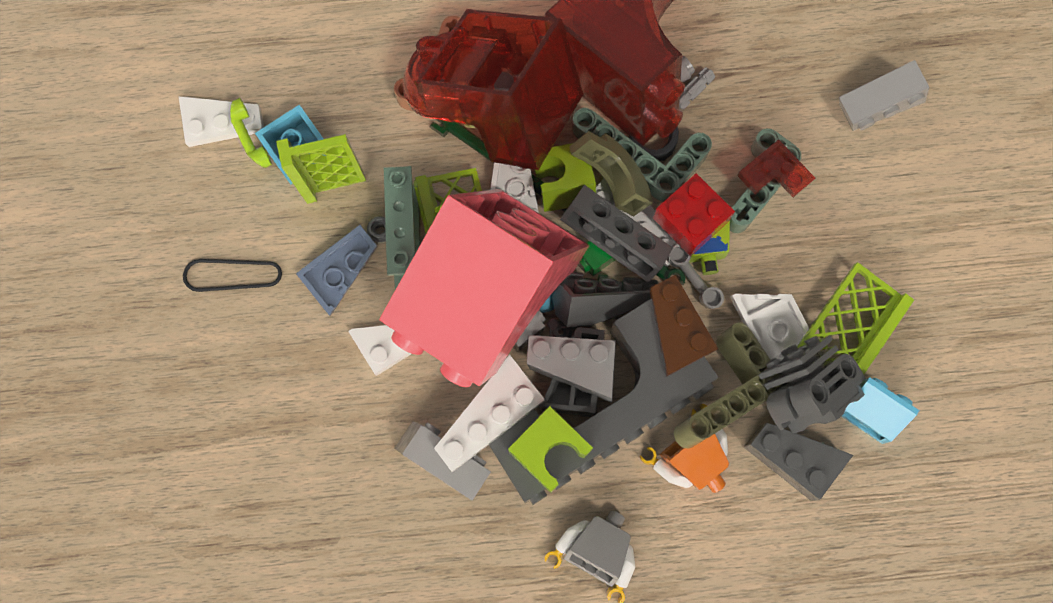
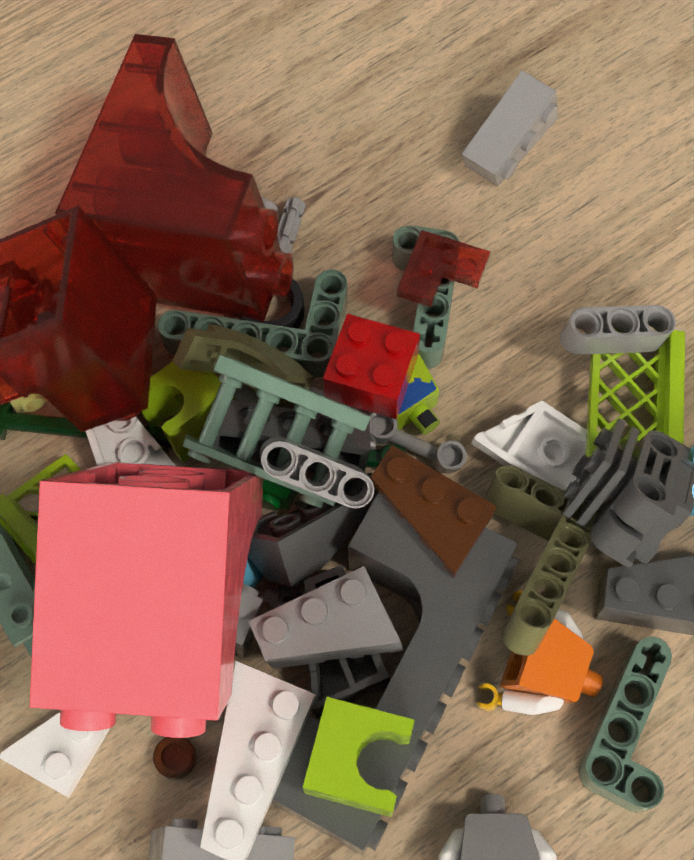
camera: 30 degrees left, 10 degrees down
(446, 389) = (174, 757): none -> reddish brown tile
(618, 200) = (270, 391): none -> sand green fence
(623, 279) = (328, 487): none -> light grey beam
(728, 519) = (632, 719): none -> sand green beam
(881, 275) = (630, 320): none -> light grey beam

